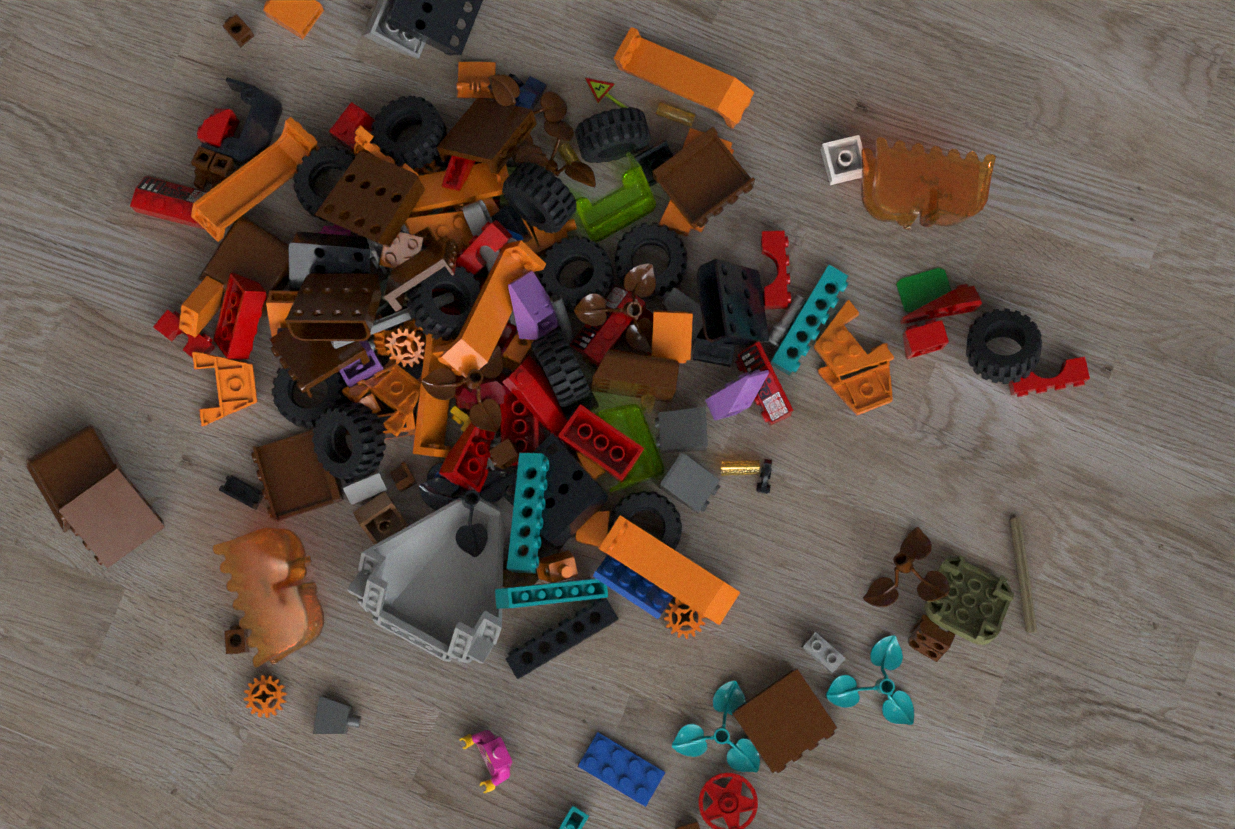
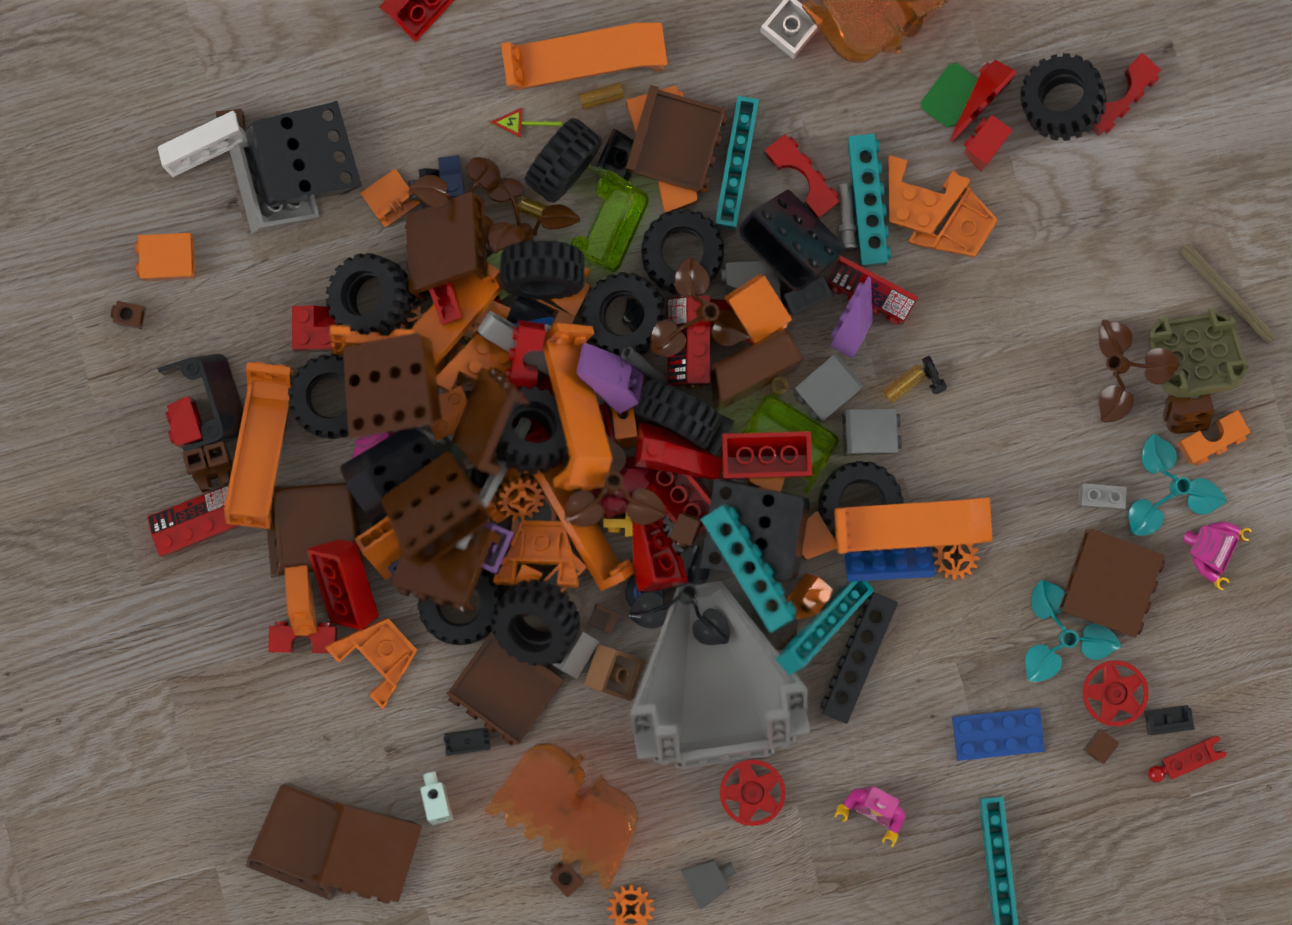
camera: 45 degrees left, 5 degrees up
(187, 517) = (437, 809): none -> light aqua torso
(413, 678) = (752, 792): none -> red wheel
(736, 225) = (736, 163): none -> teal brick
(877, 751) = (1214, 548): none -> dark pink torso
(919, 670) = (1231, 429): none -> orange arch

